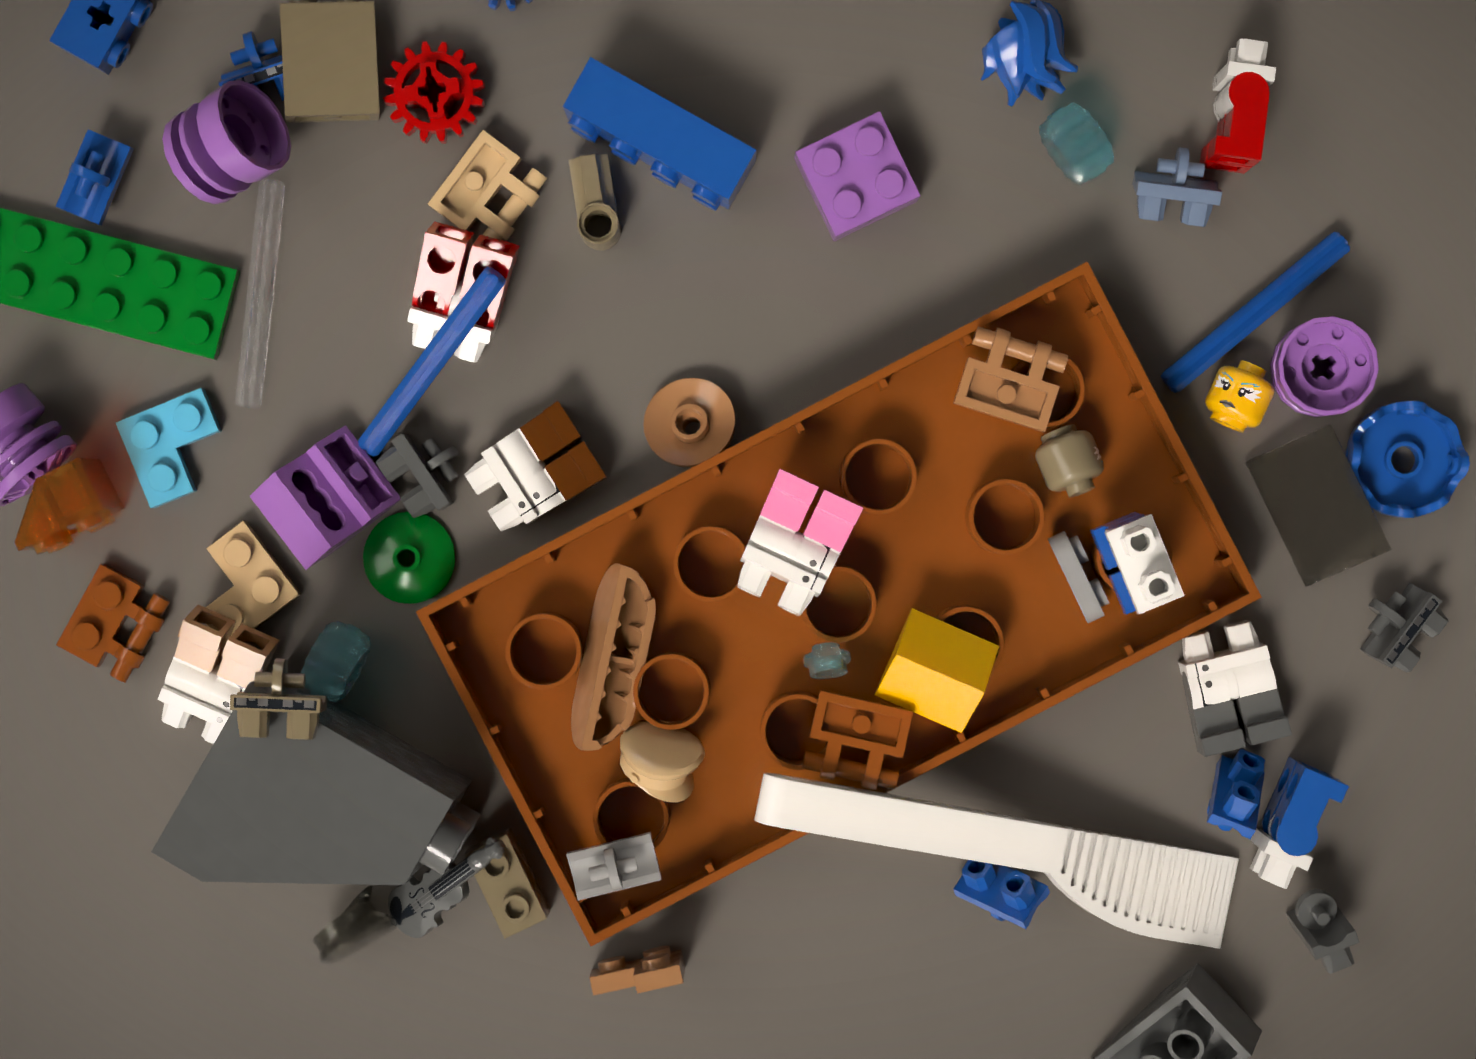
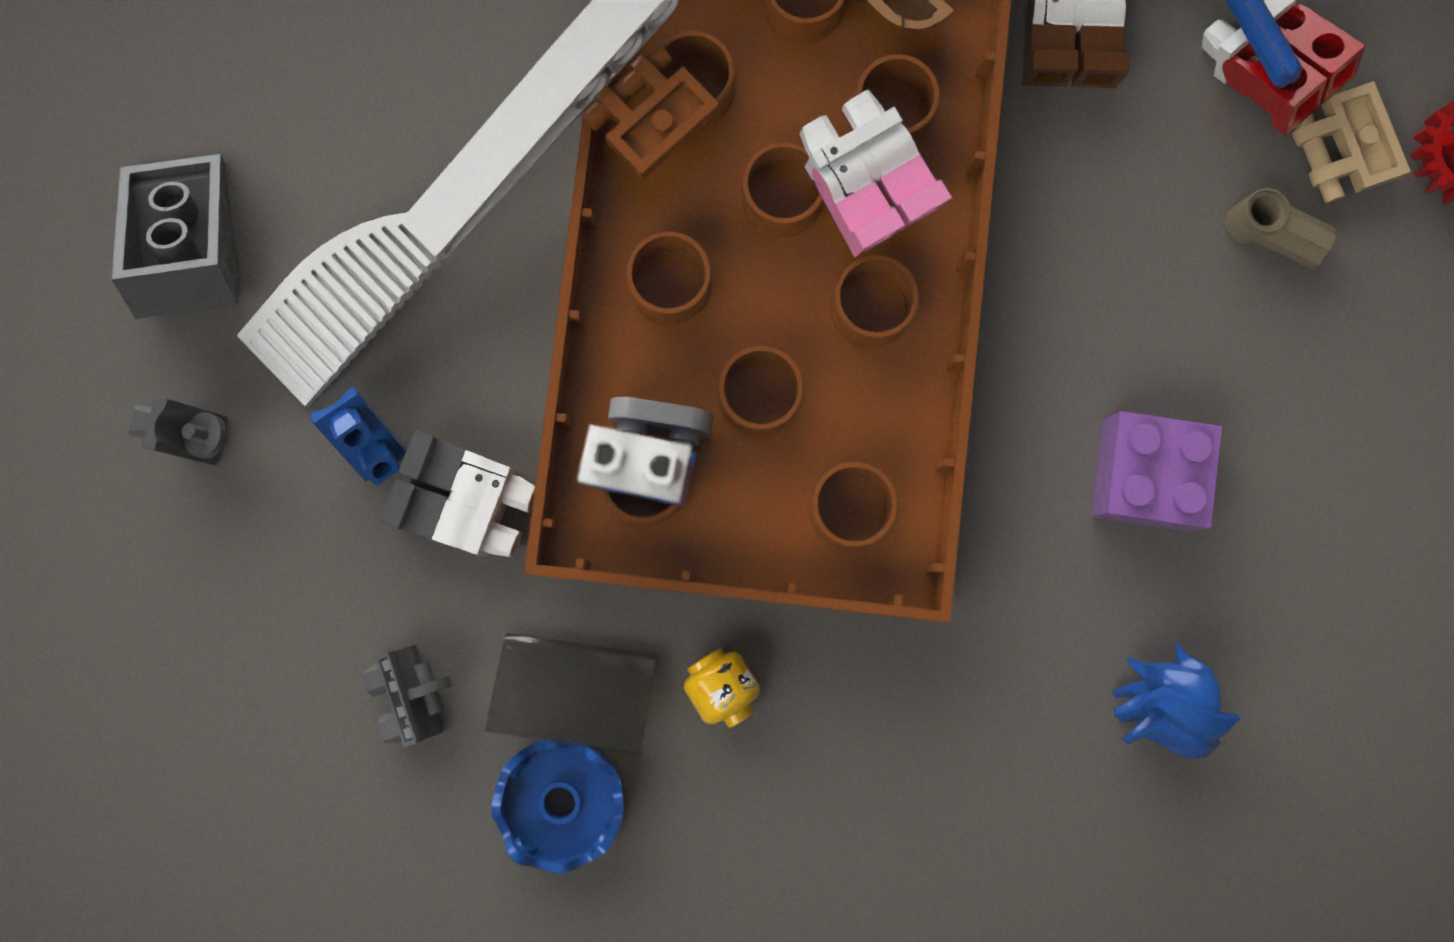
camera: 120 degrees right, 5 degrees down
(658, 133) = (1315, 313): blue brick -> none
(676, 407) = (1045, 178): medium nougat dish -> none
(827, 661) = (741, 131): clear light blue plate -> none
(937, 671) = (665, 226): yellow slope -> none
(1001, 891) = (416, 168): blue hips -> none
(1005, 392) = (877, 460): medium nougat plate -> none
(1069, 460) = (772, 483): dark tan head -> none
(1076, 143) = (1059, 693): clear light blue gear -> none
(1196, 194) = (964, 740): sand blue hips -> none
(1240, 109) = (1006, 881): red hips -> none
(1255, 312) = (788, 759): blue axle -> none
(1292, 821) = (303, 471): blue hips -> none
(1350, 373) = (723, 802): medium lavender wheel -> none

